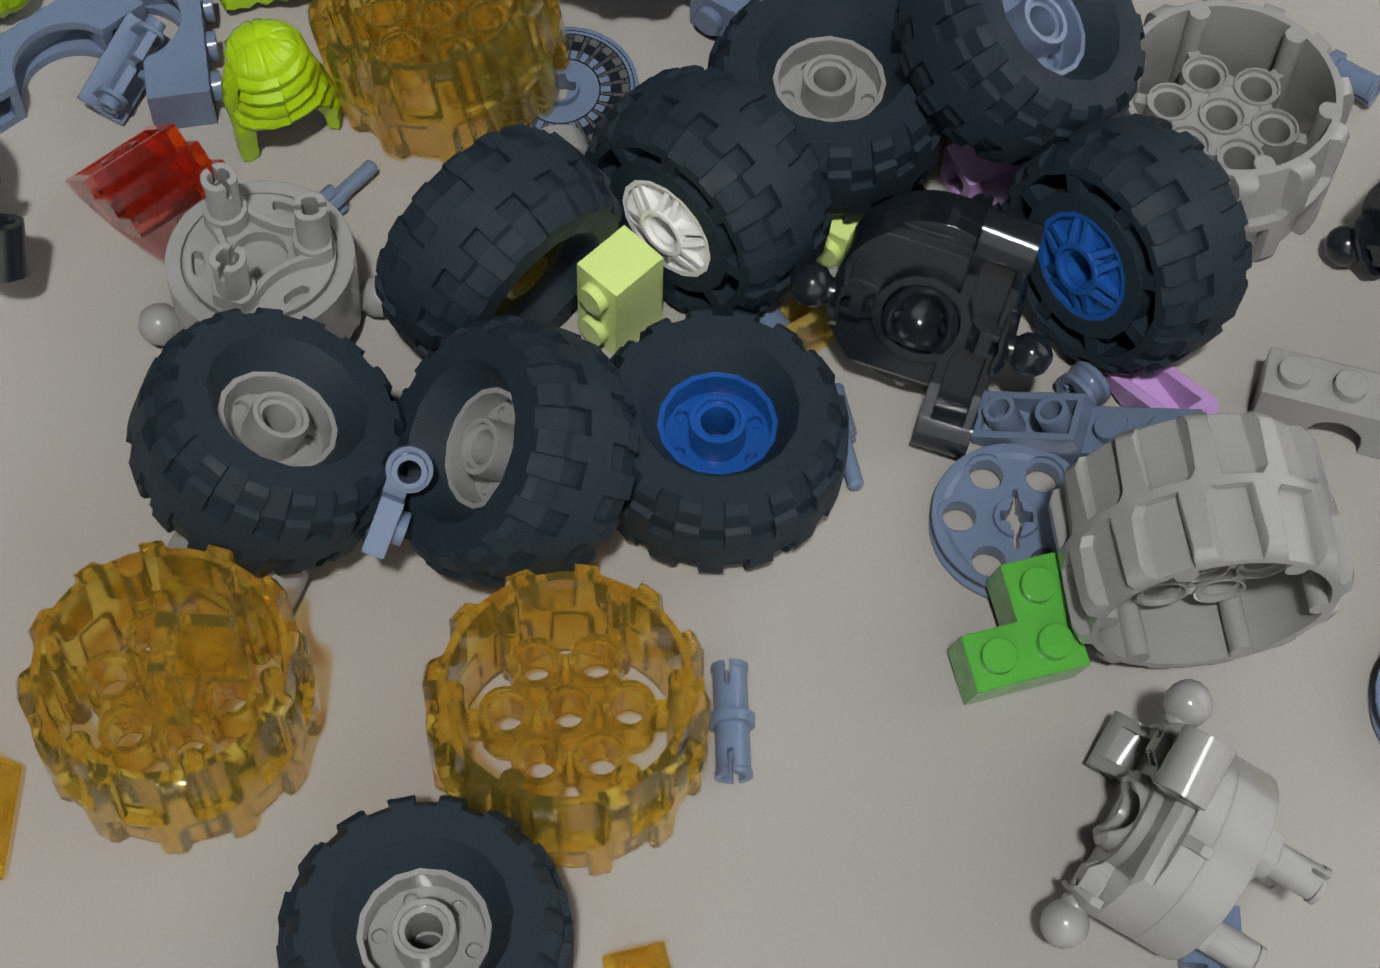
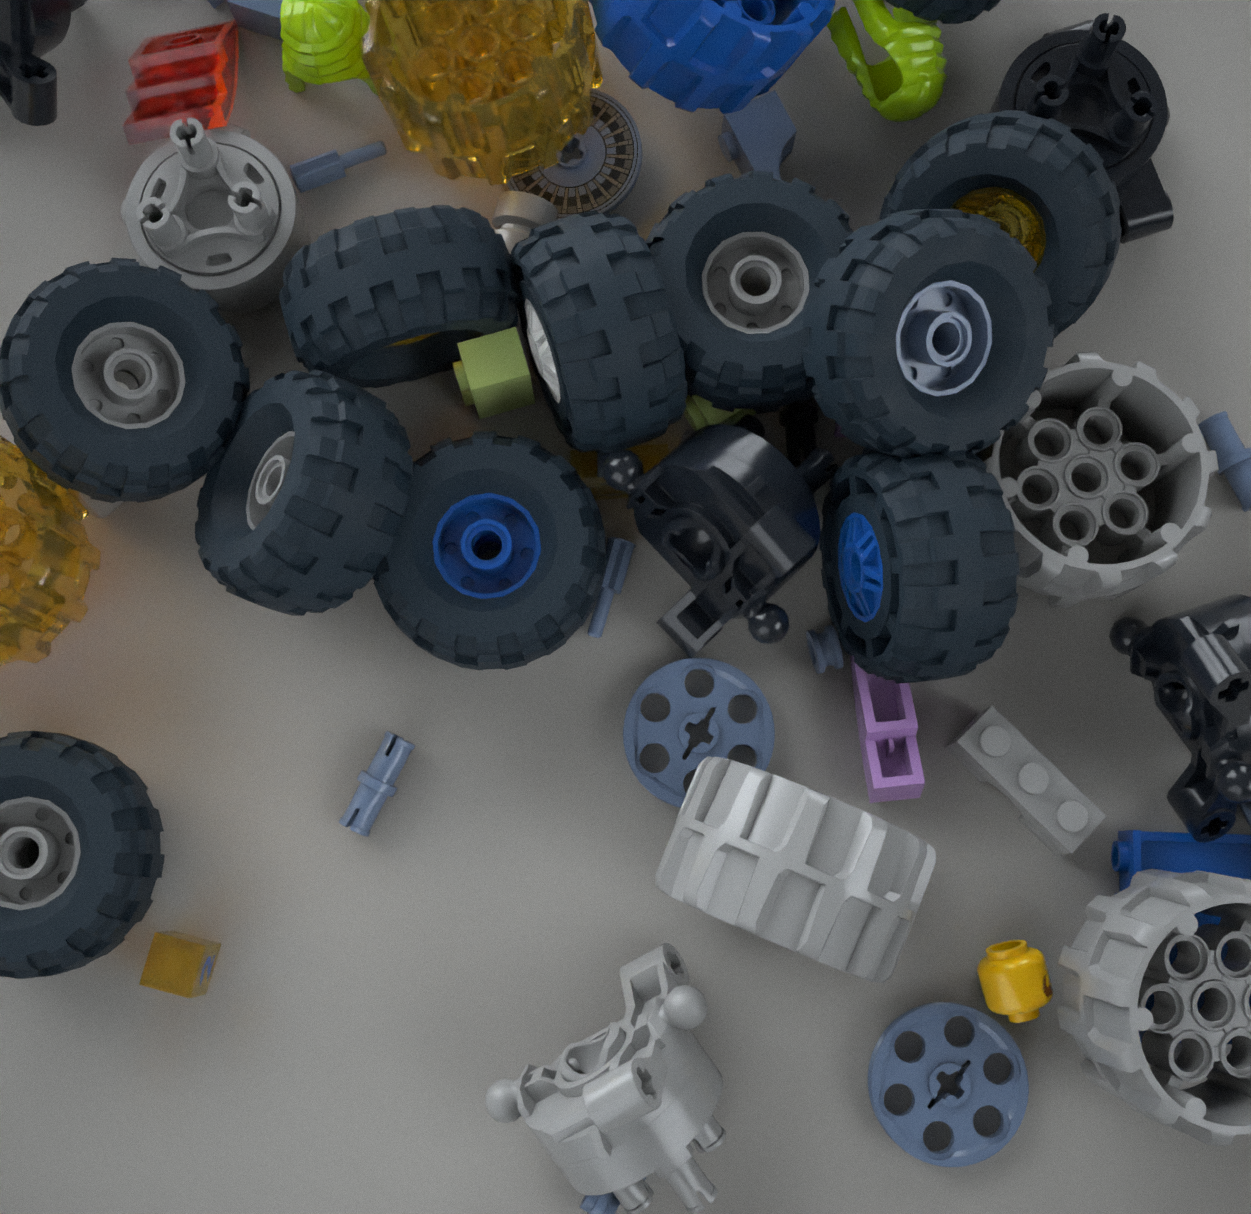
camera: 30 degrees right, 20 degrees up
(390, 519) = (205, 472): sand blue plate -> none
(600, 626) = (151, 689): clear yellow wheel -> none
(1032, 639) = (630, 853): bright green brick -> none
(1059, 421) = (803, 699): sand blue slope -> none

